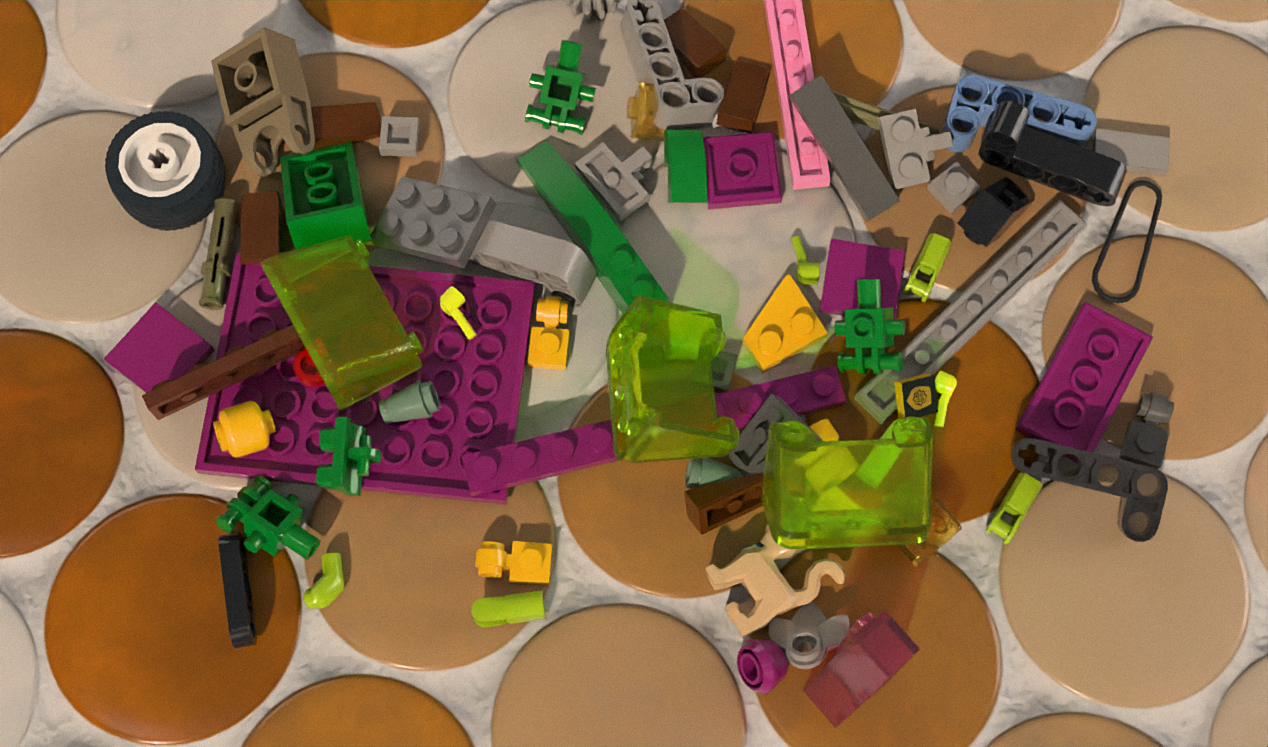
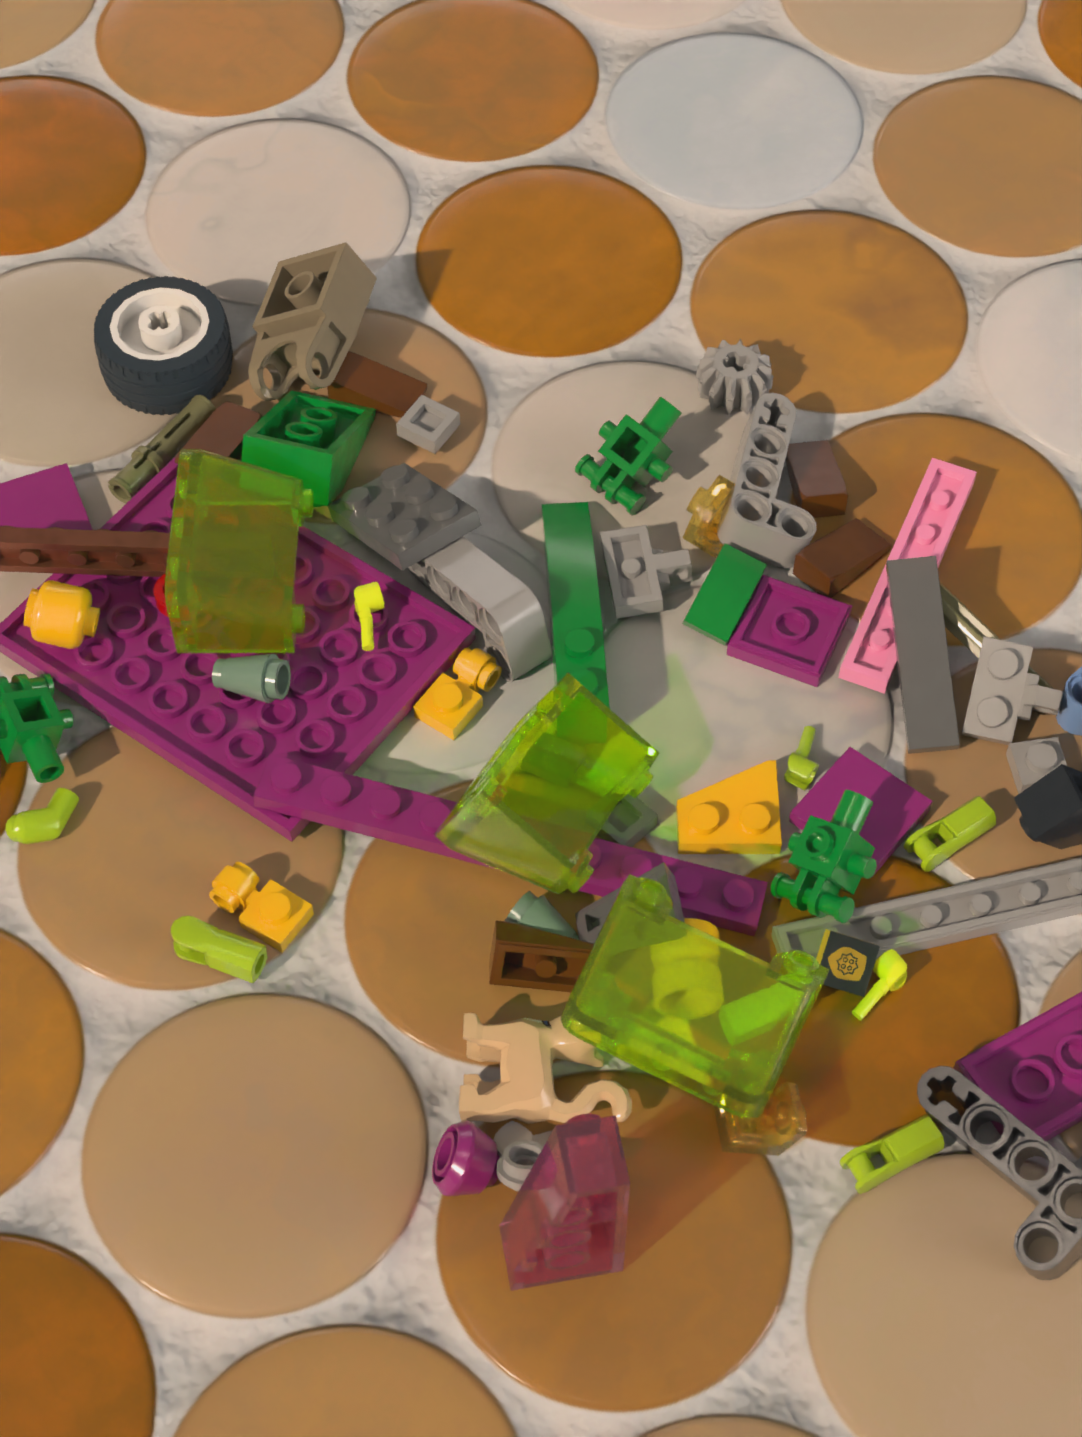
camera: 30 degrees right, 15 degrees down
(350, 457) = (149, 694): green hips -> none

